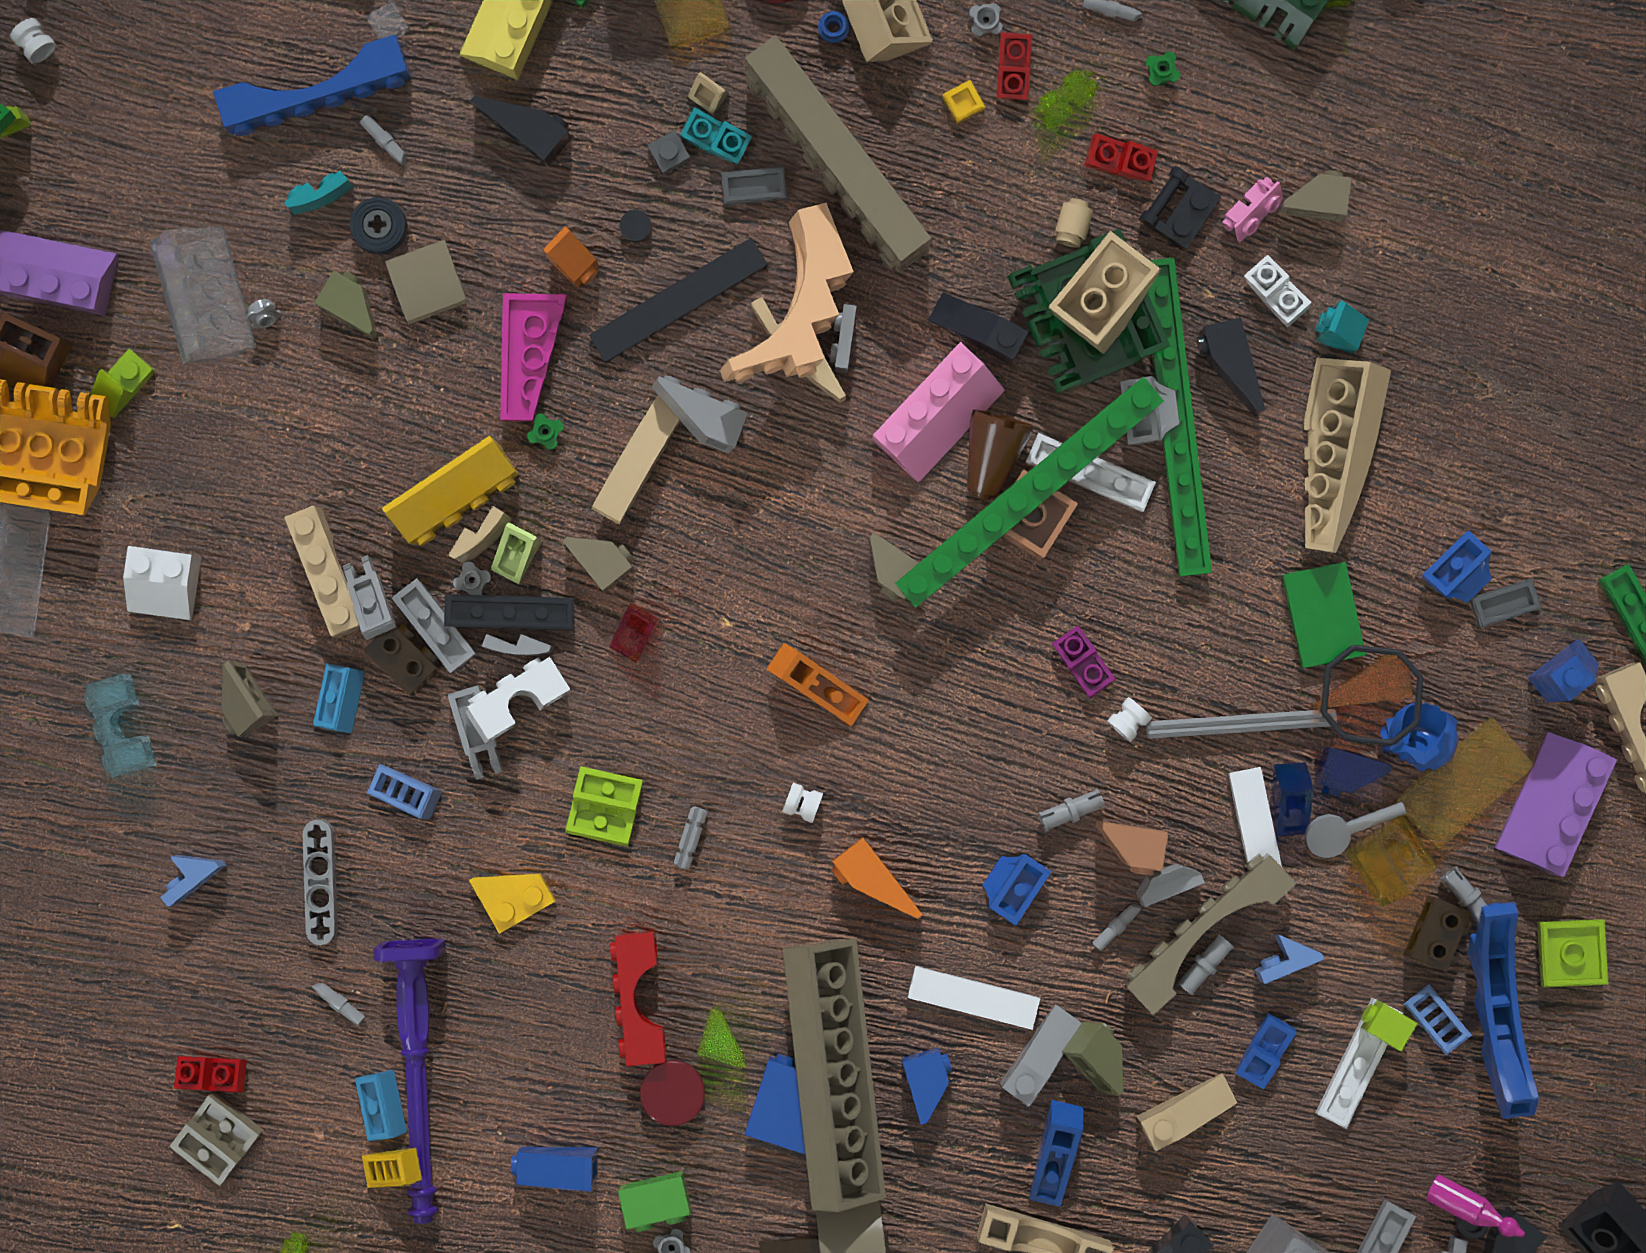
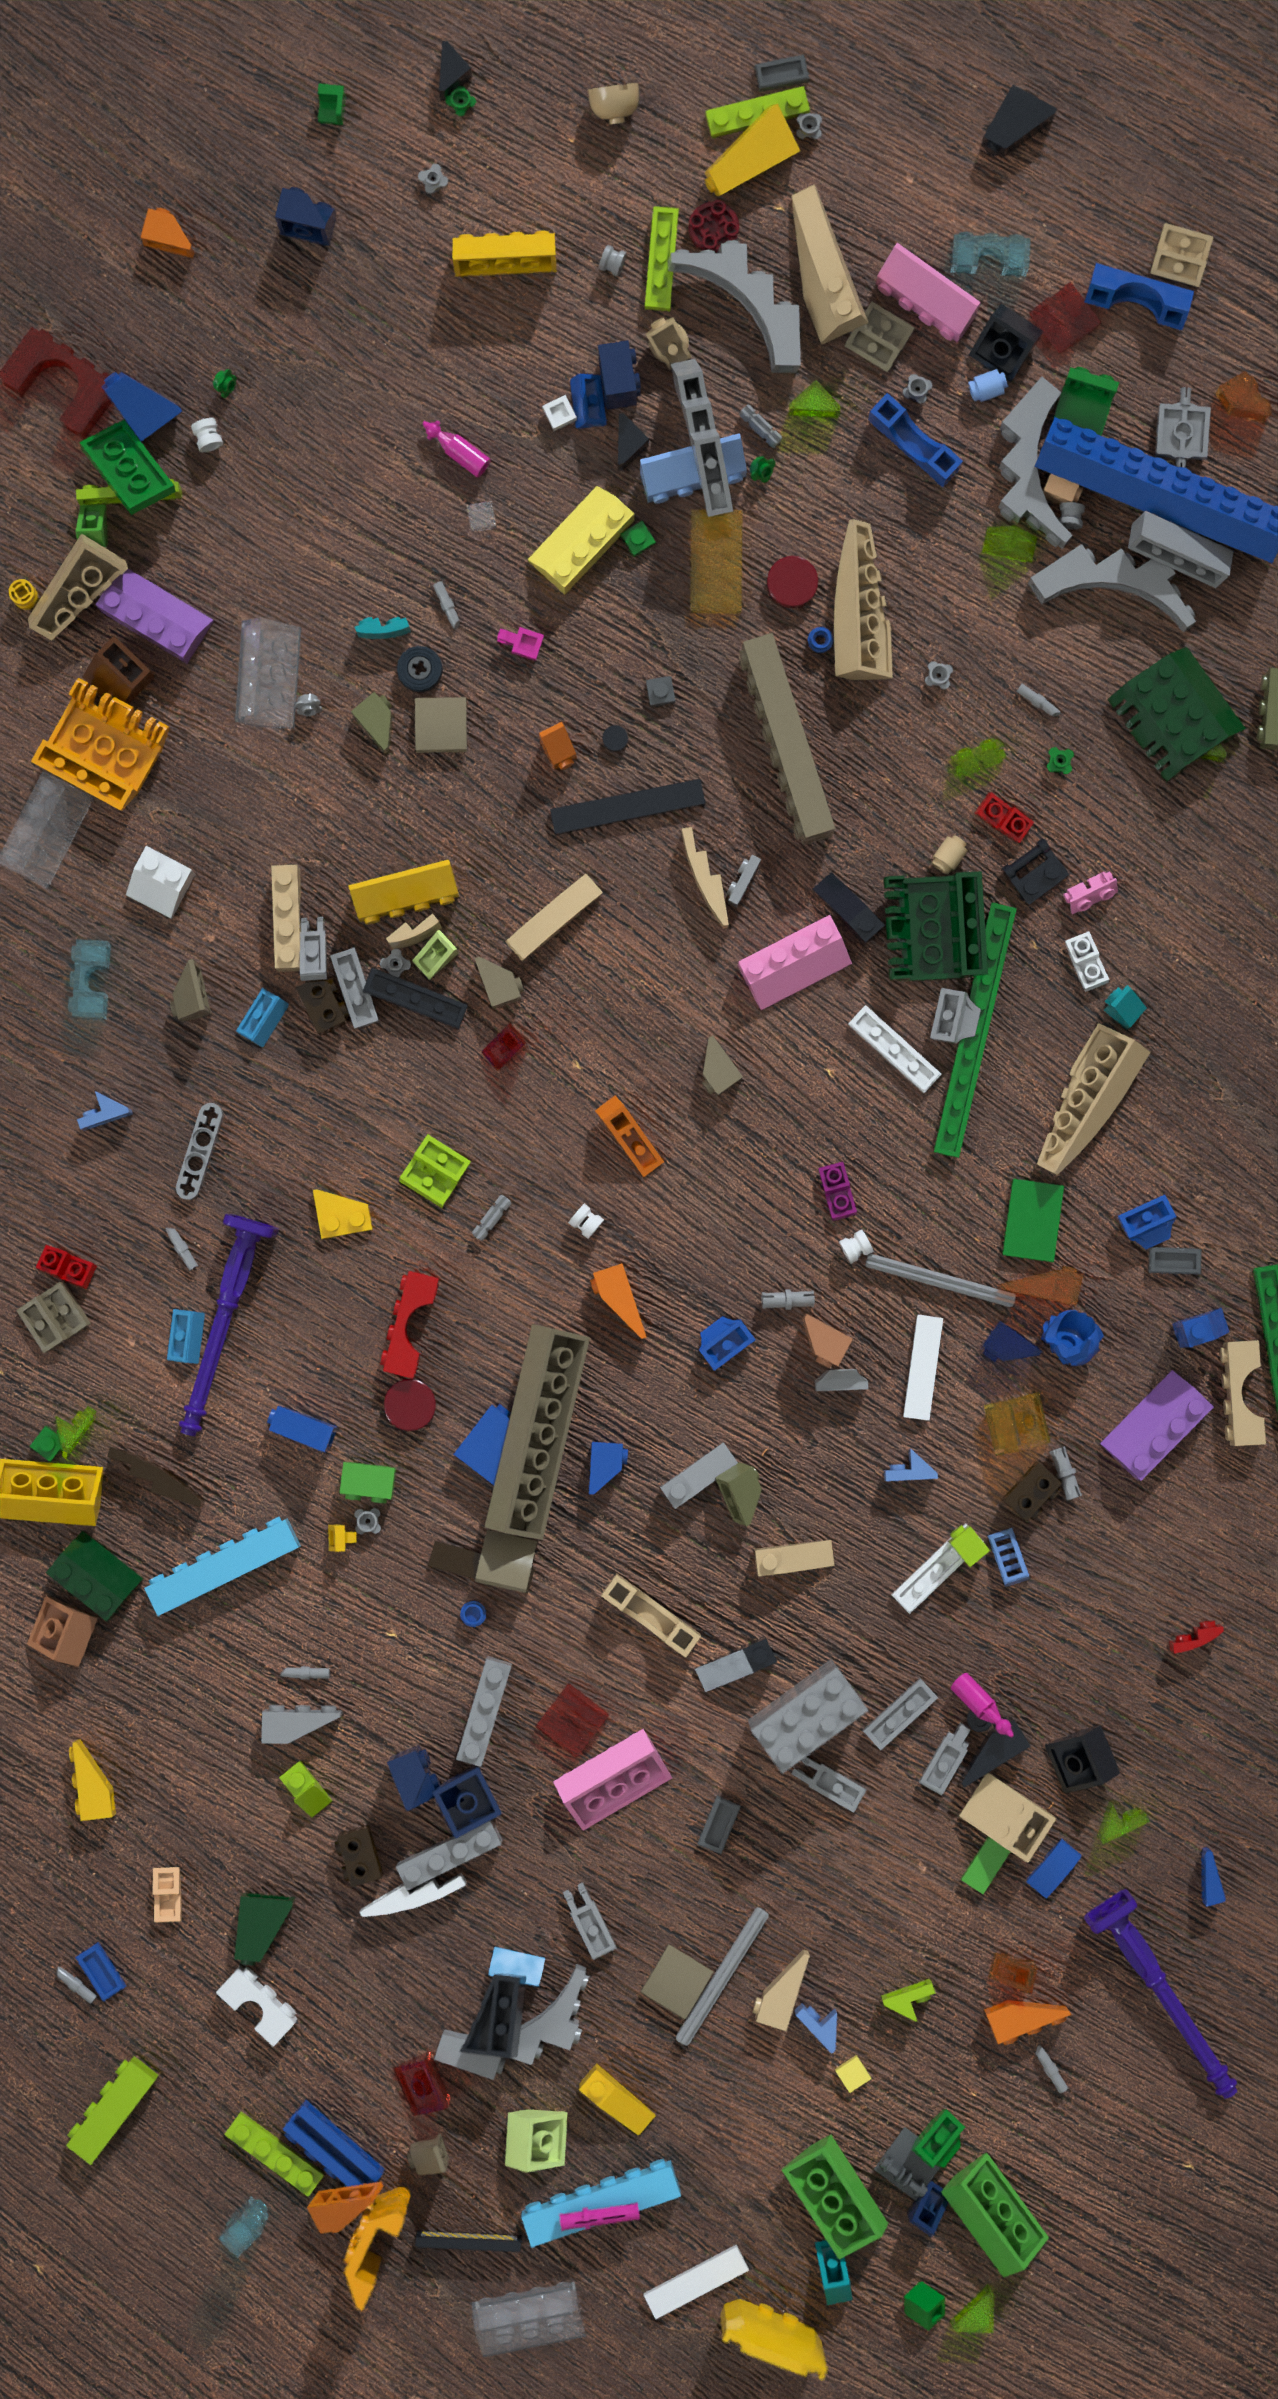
camera: 15 degrees right, 0 degrees up
(122, 381) = (183, 718): lime slope -> none
(375, 67) = (460, 547): blue arch -> none
(407, 1164) = (192, 1388): yellow slope -> none
(427, 803) = (305, 1113): medium blue slope -> none
(470, 738) = (358, 1076): light grey hinge -> none
(491, 152) = (525, 642): none -> dark pink plate
(525, 647) = (418, 1029): light grey slope -> none
(528, 341) = (501, 799): dark pink wing -> none
(529, 127) = (561, 635): black slope -> none
(539, 682) = (419, 1059): white arch -> none
(550, 439) = (491, 878): green plate -> none
(707, 93) = (706, 656): tan slope -> none
(708, 419) = (616, 903): light grey slope -> none
(715, 136) = (700, 691): teal slope -> none
(719, 1042) = (458, 1378): clear neon green slope -> none
(754, 186) = (716, 740): dark grey tile -> none
(820, 270) = (744, 822): light nougat arch -> none
(963, 102) = (899, 732): yellow tile -> none
(973, 997) = (663, 1415): white tile -> none
(993, 451) = (826, 1006): reddish brown cone -> none
(1014, 65) = (947, 718): red slope -> none
(1029, 492) = (840, 1046): green plate -> none
(1042, 526) = (837, 1065): nougat brick -> none
(1057, 1152) = (683, 1553): blue slope -> none
(1105, 292) = (952, 916): tan slope -> none
(1116, 926) = (790, 1400): light grey piece -> none
(1155, 980) = (803, 1451): dark tan arch -> none
(1205, 964) = (847, 1452): light grey pin -> none
(1231, 359) = (1031, 998): black slope -> none
(1265, 1051) = (869, 1534): blue slope -> none
(1292, 798) = (958, 1350): clear blue slope -> none
(1321, 198) = (1144, 902): dark tan slope -> none
(1331, 835) = (977, 1388): light grey piece -> none
(1368, 740) = (1031, 1325): black piece -> none
(1472, 780) = (1094, 1386): clear yellow plate -> none
(1496, 1002) = (1056, 1562): blue arch -> none
(1572, 953) = (1129, 1543): lime plate -> none

